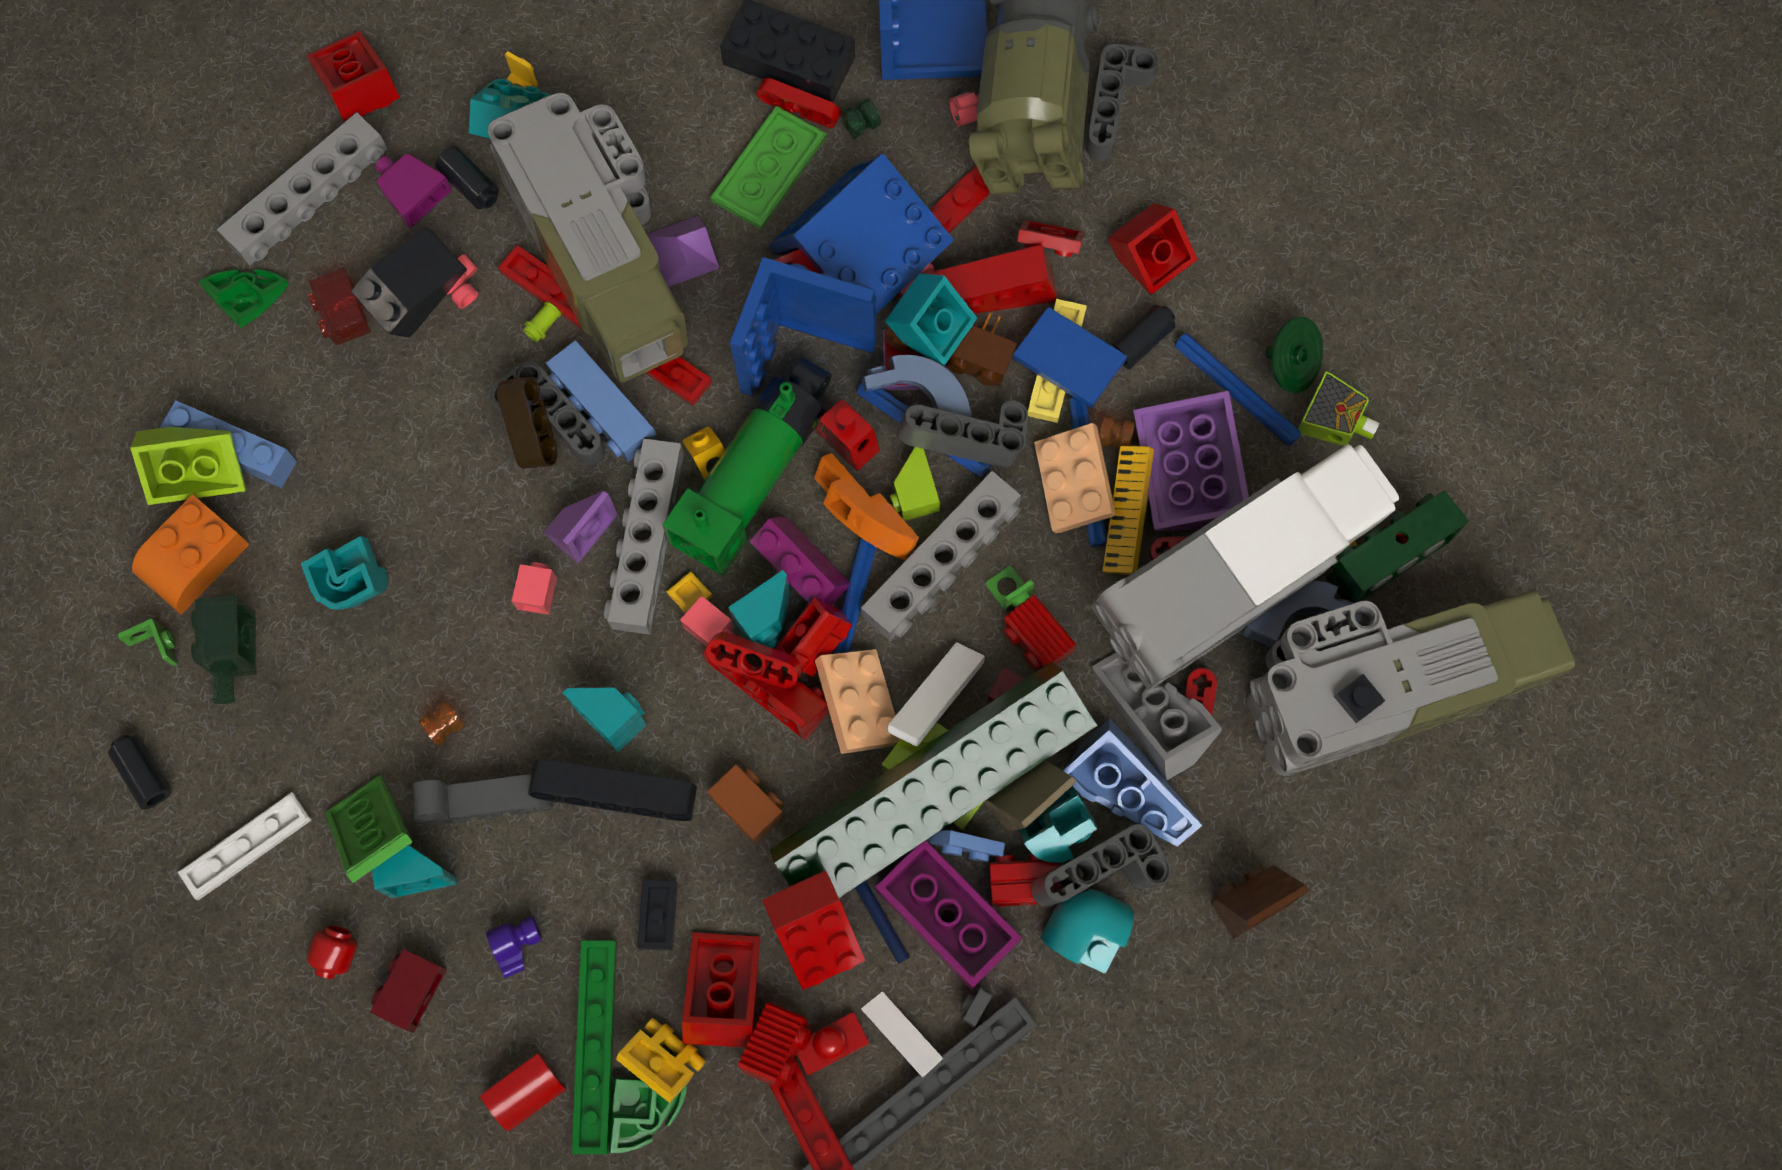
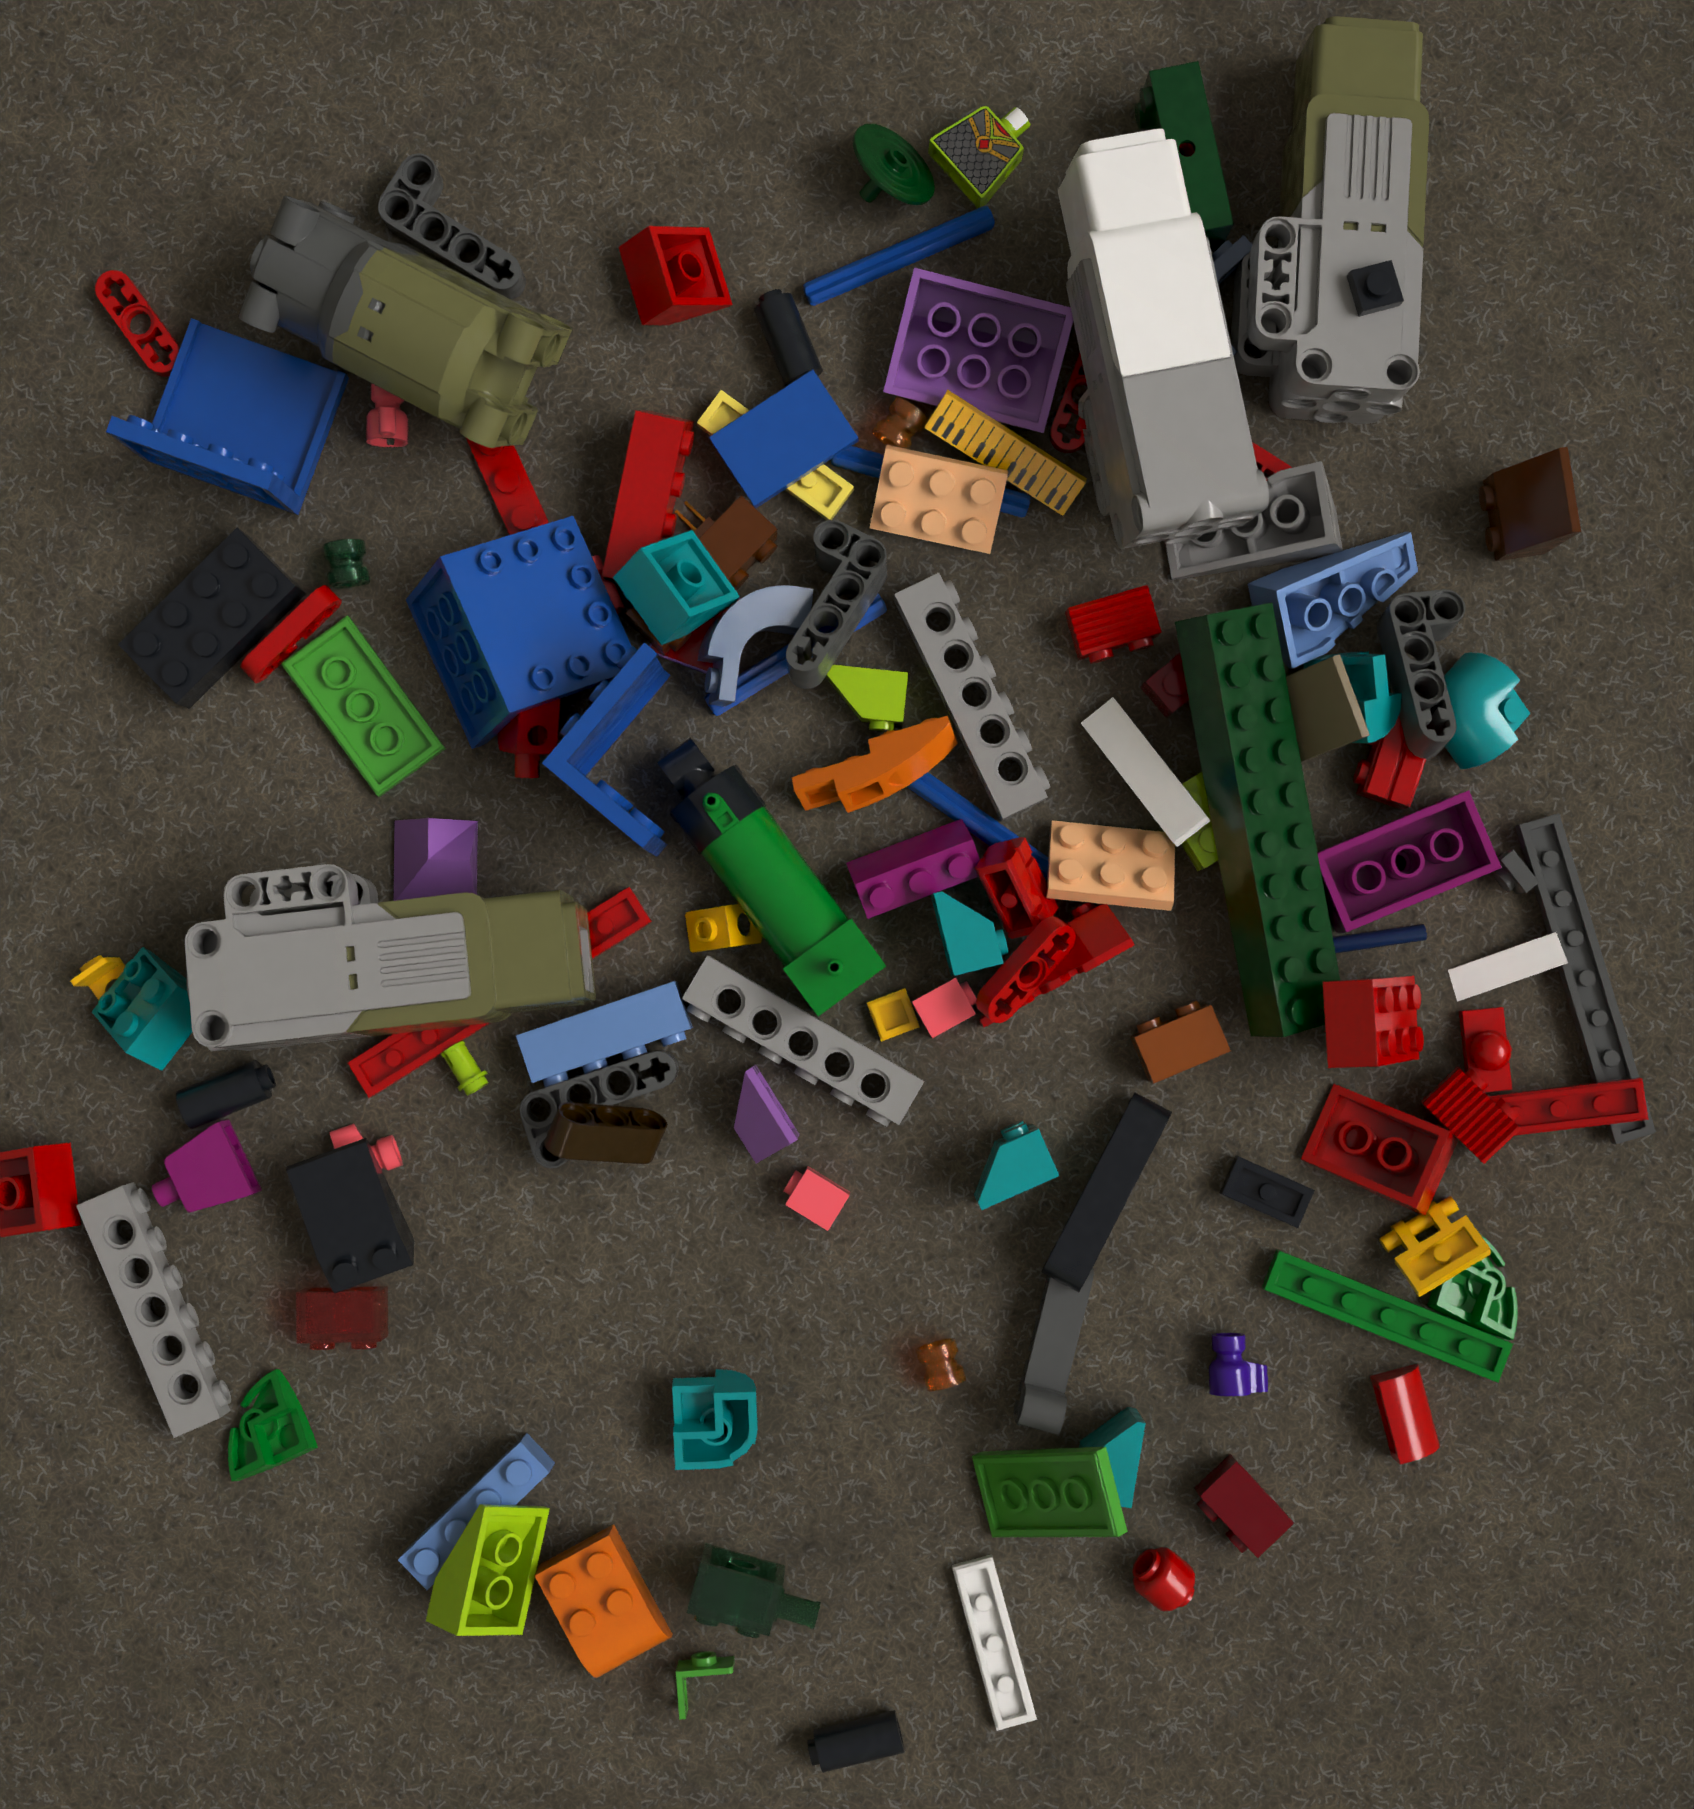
camera: 65 degrees left, 15 degrees up
(845, 432) = (772, 748): red torso -> none
(955, 843) = (1334, 804): medium blue plate -> none
(1015, 598) = (1057, 629): bright green bracket -> none
(1062, 239) = (616, 393): red plate -> none

